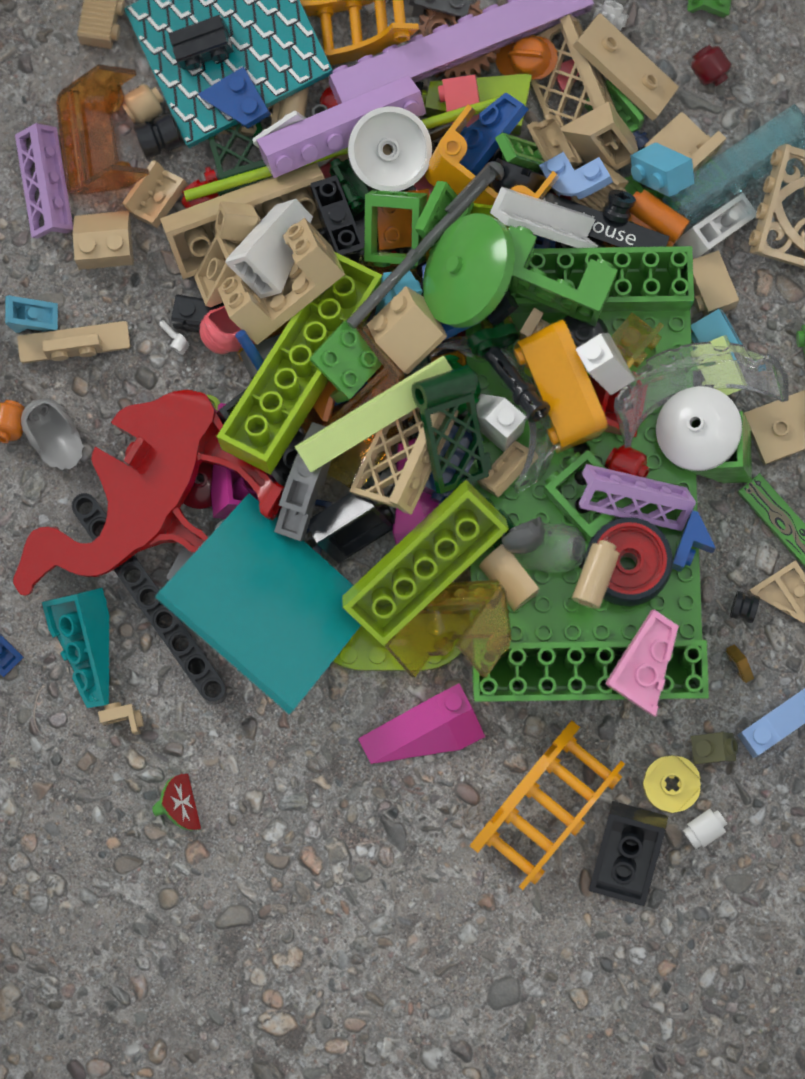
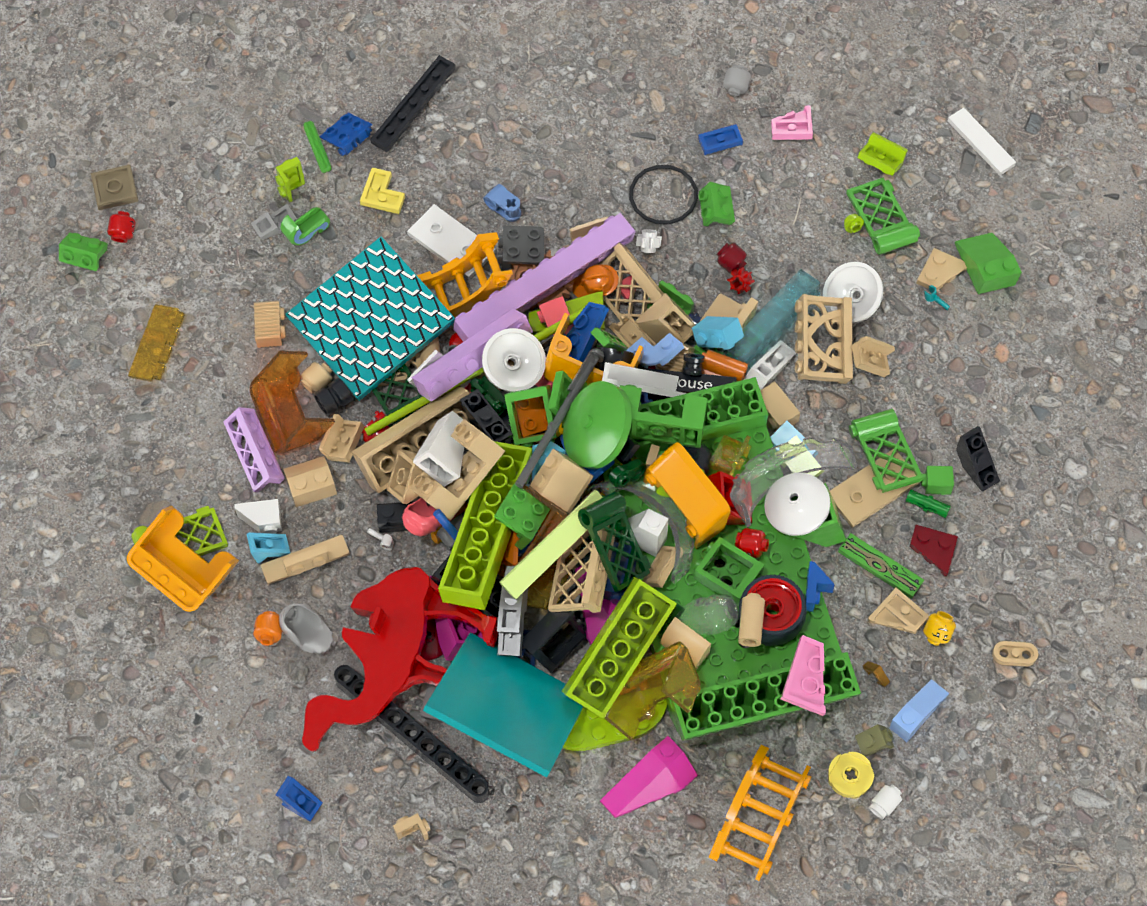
camera: 15 degrees left, 15 degrees down
(34, 273) = (261, 515): none -> white slope
(83, 631) = (366, 773): teal wedge -> none
(178, 803) = (472, 880): red shield -> none
(201, 43) = (351, 322): black brick -> none
(235, 221) = (410, 437): tan brick -> none
(237, 98) = (388, 355): blue wing -> none
(522, 392) = (661, 503): black pin -> none
(524, 537) = (690, 608): dark grey hair -> none
(605, 363) = (716, 466): white slope -> none
(626, 66) = (670, 270): tan plate -> none
(628, 853) = (832, 834): black slope -> none
(639, 489) = (764, 554): lavender fence -> none
(713, 100) = (740, 280): none -> red gear
(744, 607) = (868, 631): black wheel -> none

